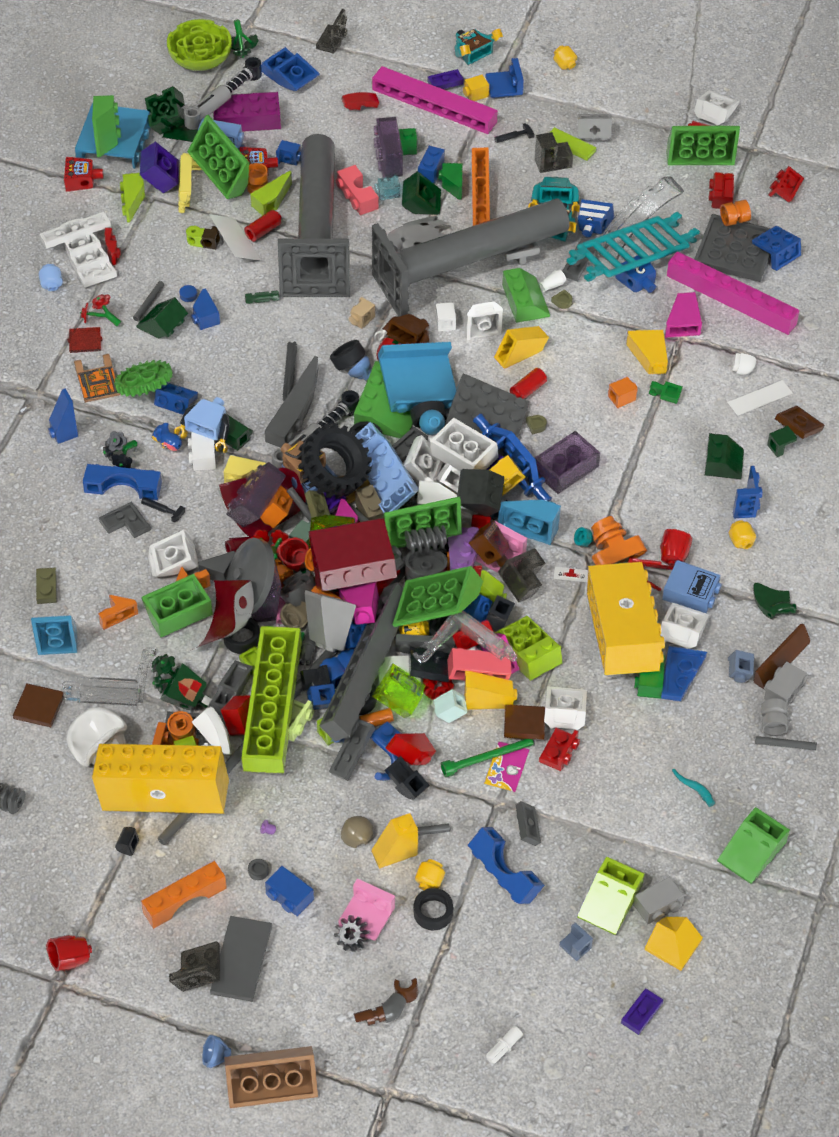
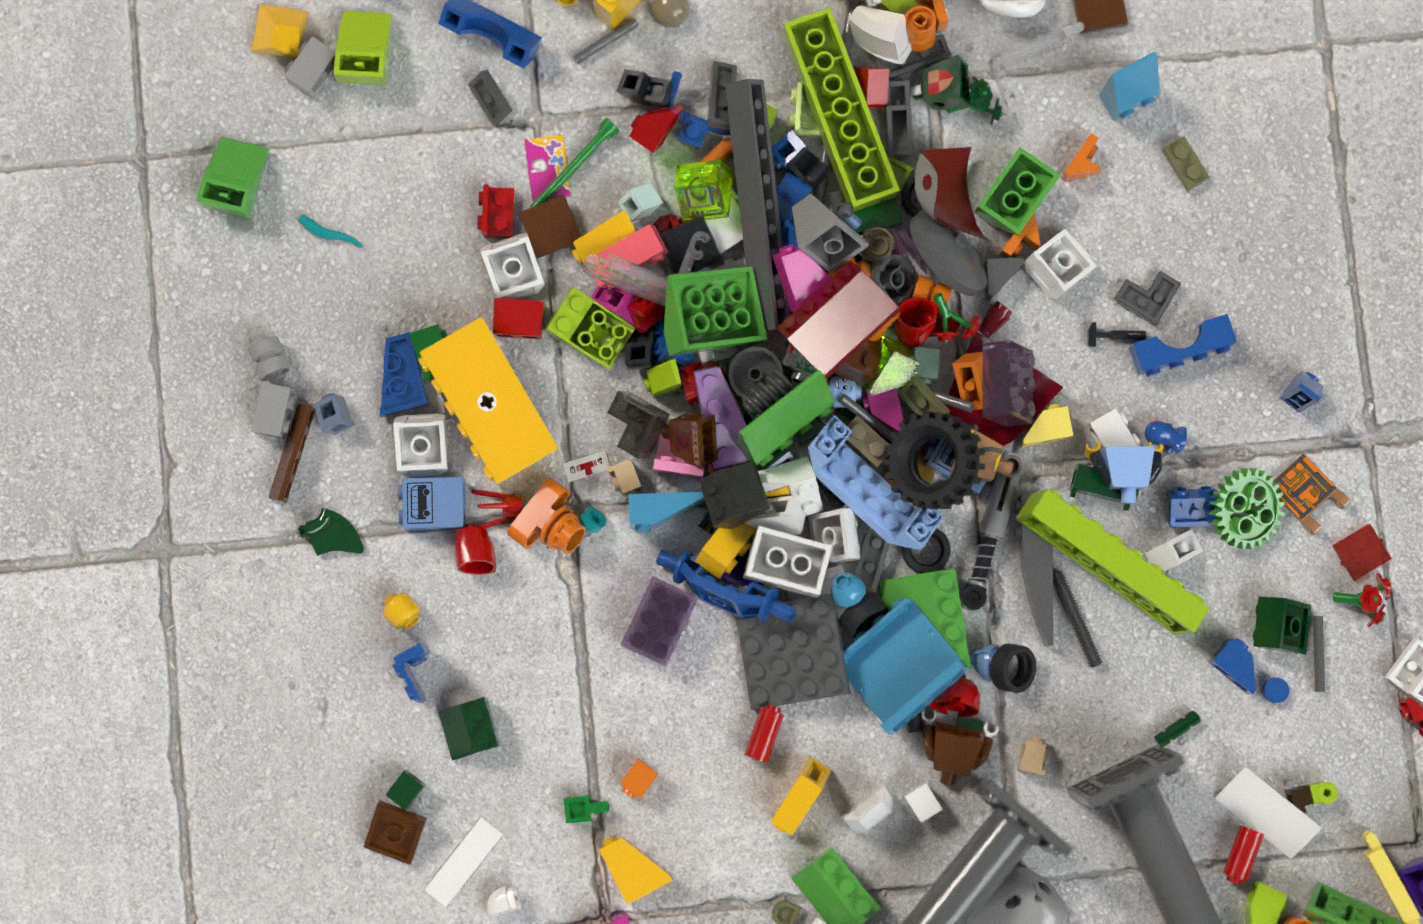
camera: 155 degrees right, 30 degrees up
(117, 443) = (1217, 380): black plant -> none
(205, 377) = (1175, 551): none -> white slope
(251, 375) = (1113, 562): none -> lime brick
(305, 633) = (846, 213): none -> arm
(536, 423) = (727, 680): olive tile -> none
(549, 551) = (626, 478): none -> tan brick
(576, 671) = (518, 318): none -> red piece
(785, 743) = (247, 337): dark grey piece -> none

